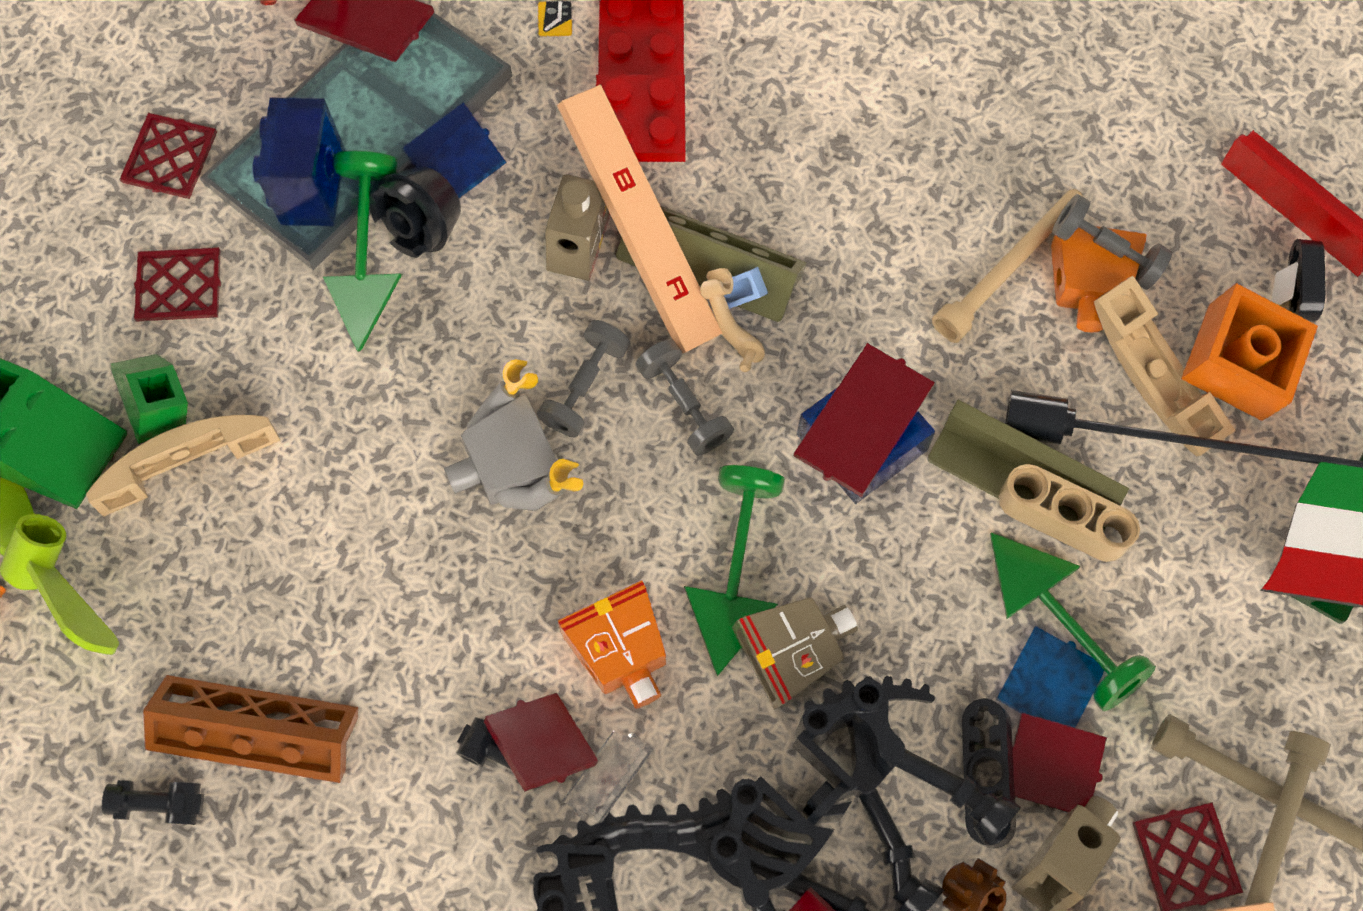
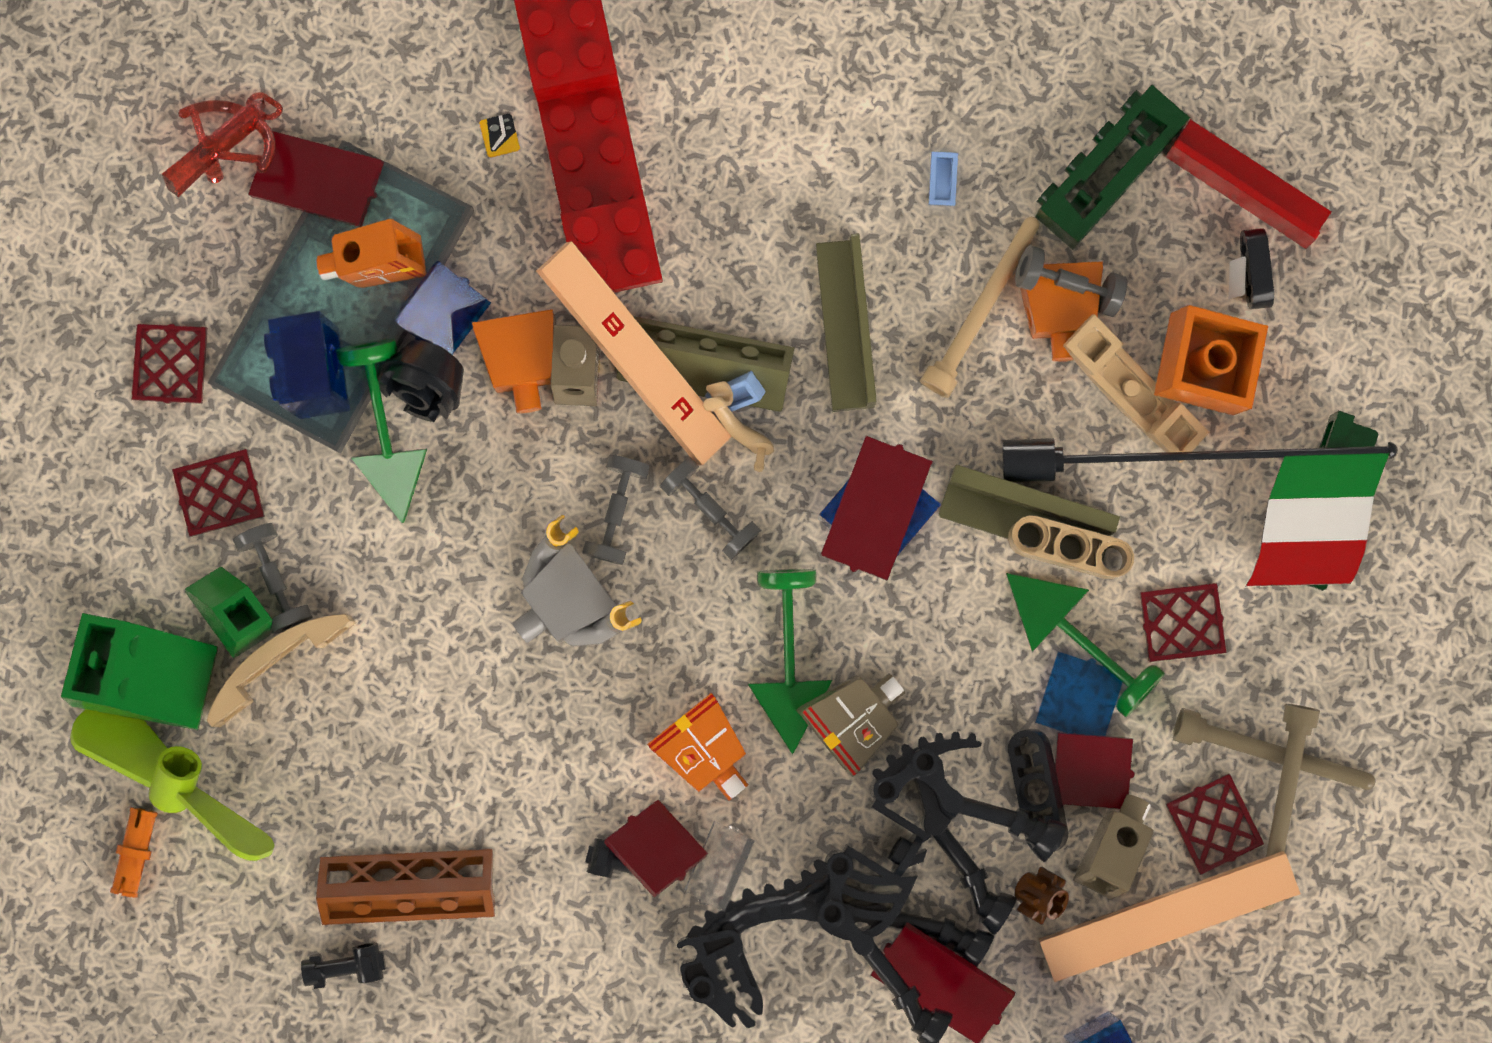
camera: 10 degrees left, 15 degrees up
(198, 330) = (255, 539): none -> dark grey wheel
(400, 78) = (374, 255): none -> orange torso
(518, 209) = (518, 355): none -> orange torso
(865, 252) = (846, 324): none -> olive panel
(990, 138) = (943, 178): none -> light blue piece
(1217, 123) = (1157, 115): none -> dark green brick
(1217, 628) = (1216, 618): none -> dark red window

